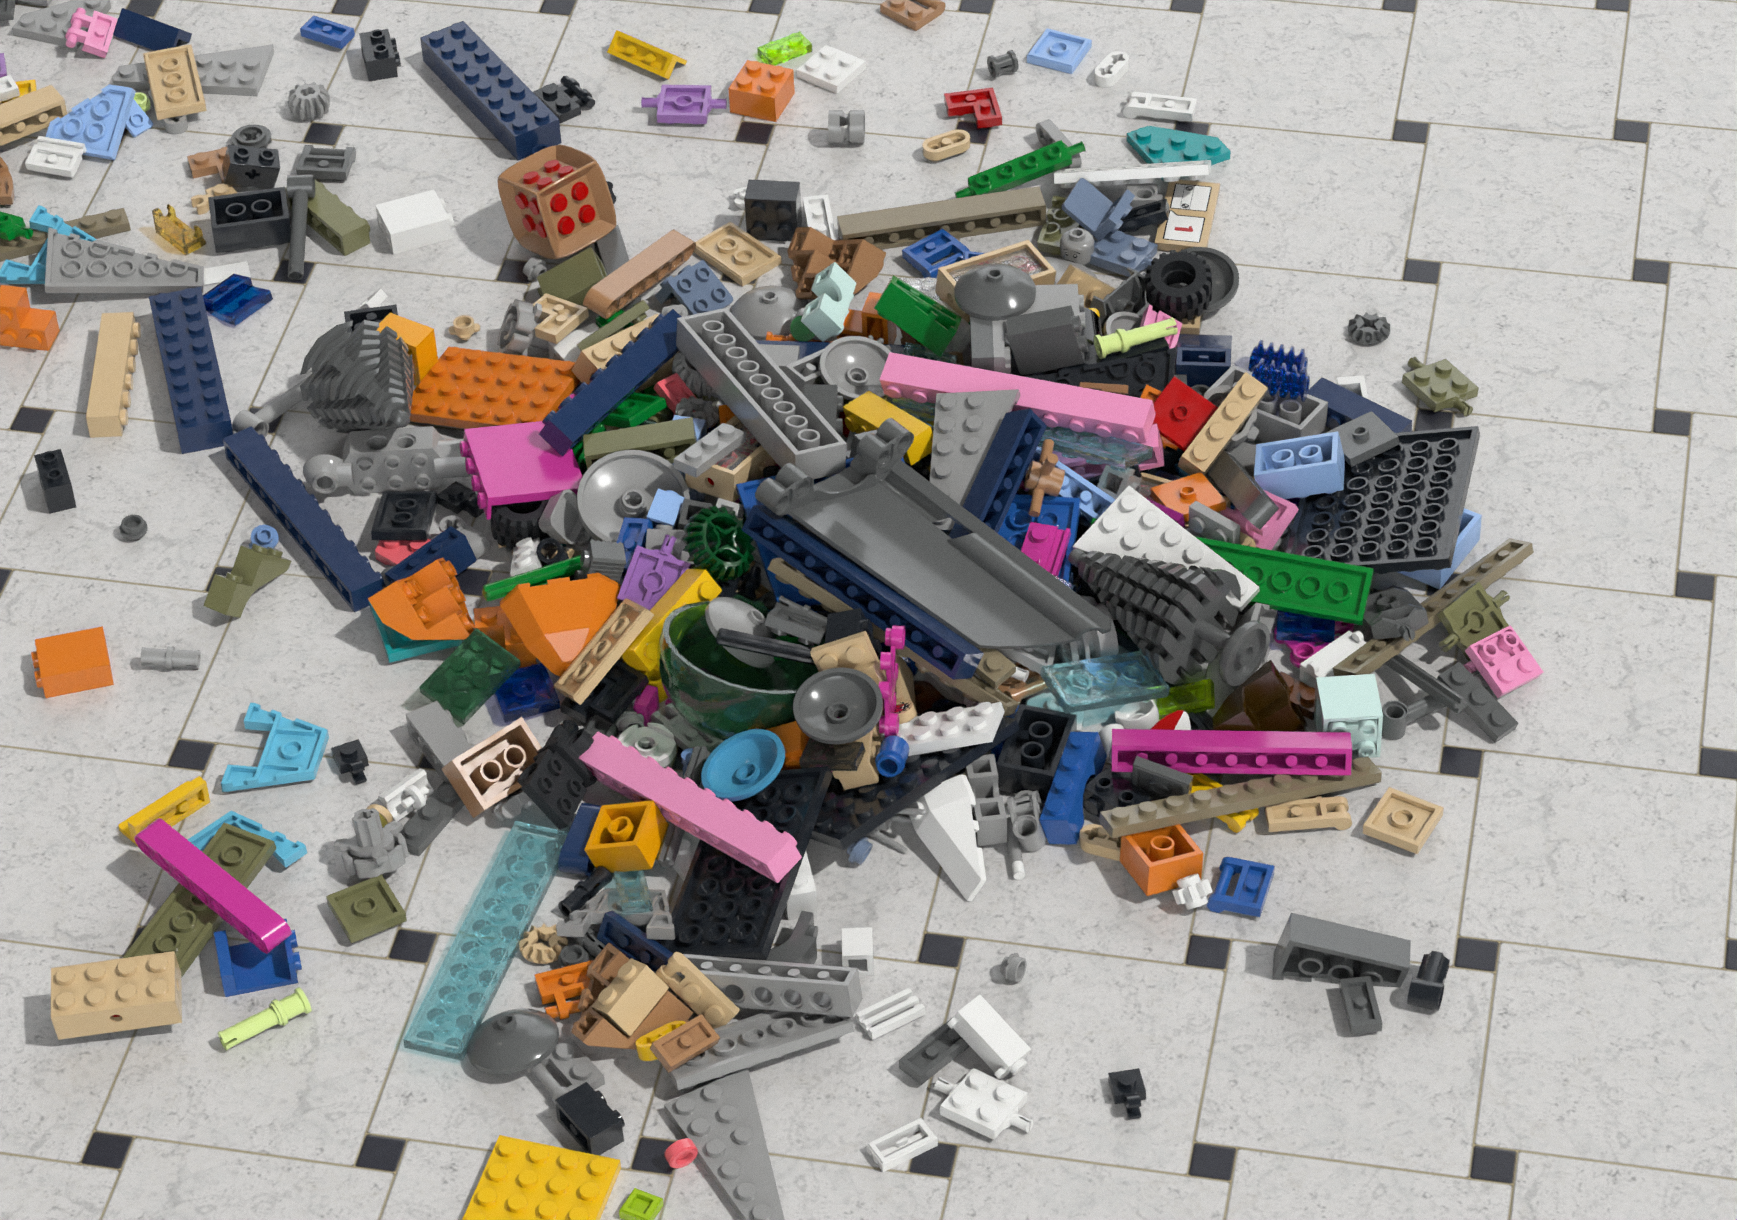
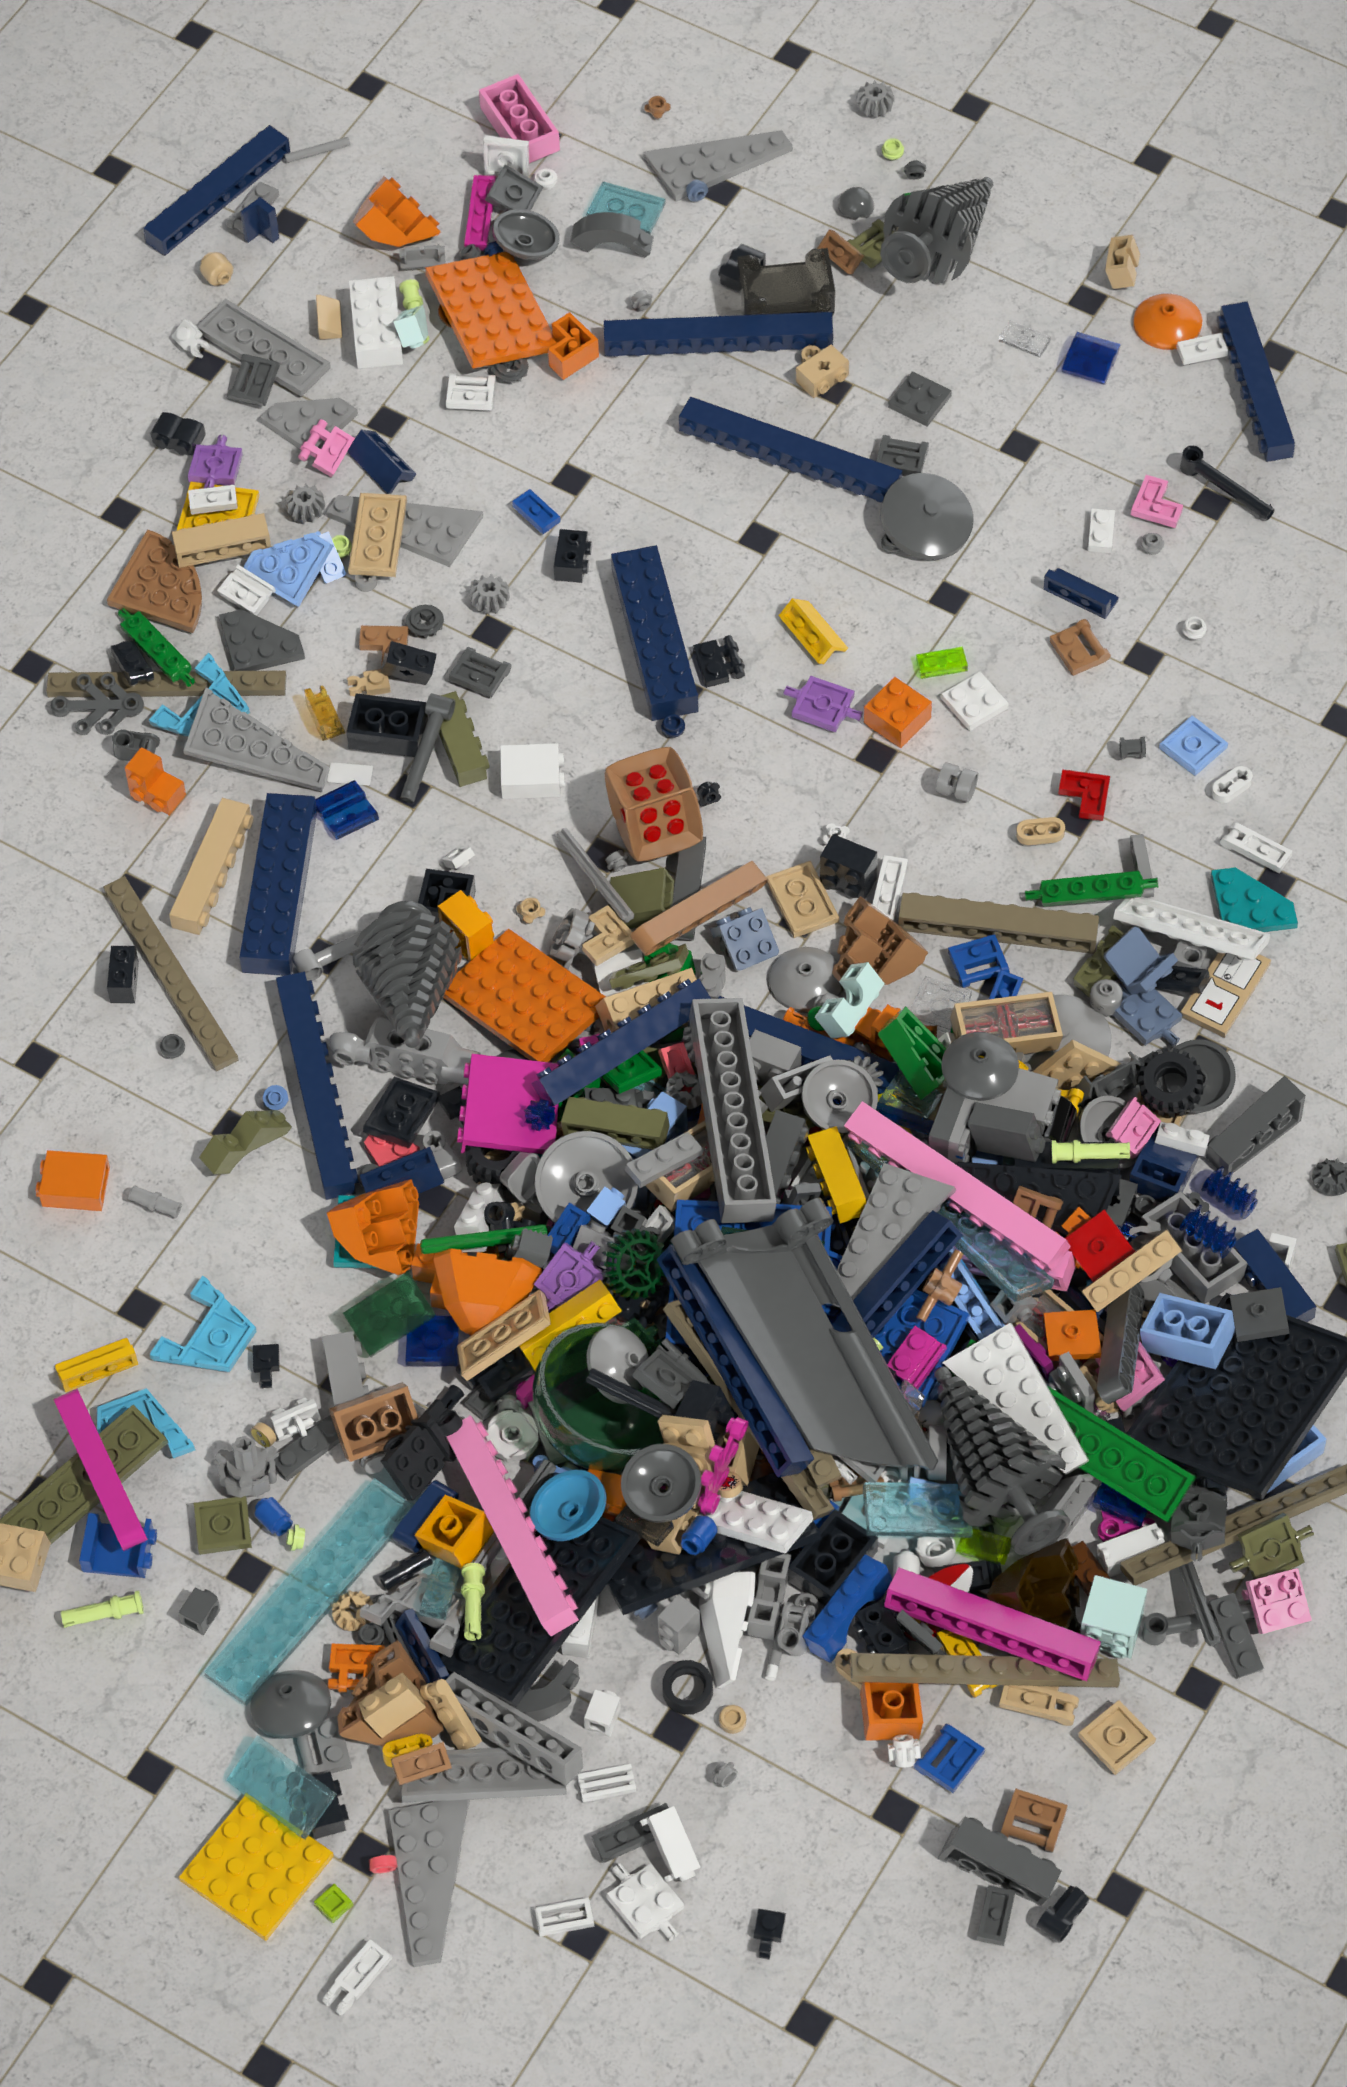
camera: 20 degrees right, 15 degrees up
(85, 195) = (257, 642): none -> dark grey plate
(87, 78) = (305, 503): none -> light grey gear
(107, 472) = (171, 974): none -> dark tan plate
(374, 989) = (199, 1610): none -> dark grey brick
(419, 884) = (273, 1516): none -> blue brick
(452, 896) = (295, 1537): none -> yellowish green plate
(519, 278) = (595, 875): none -> light grey axle
(538, 1112) = (281, 1787): none -> clear light blue plate
(560, 455) = (540, 1115): none -> clear blue gear
(670, 882) = (473, 1592): none -> yellowish green pin
(904, 848) = (678, 1624): none -> light grey piece
(937, 922) = (687, 1667): none -> black tyre
(997, 921) = (732, 1719): none -> tan tile
(1199, 331) = (1182, 1138): none -> white plate
(1279, 301) = (1257, 1127): none -> dark grey wedge
(1358, 905) = (1037, 1812): none -> medium nougat plate

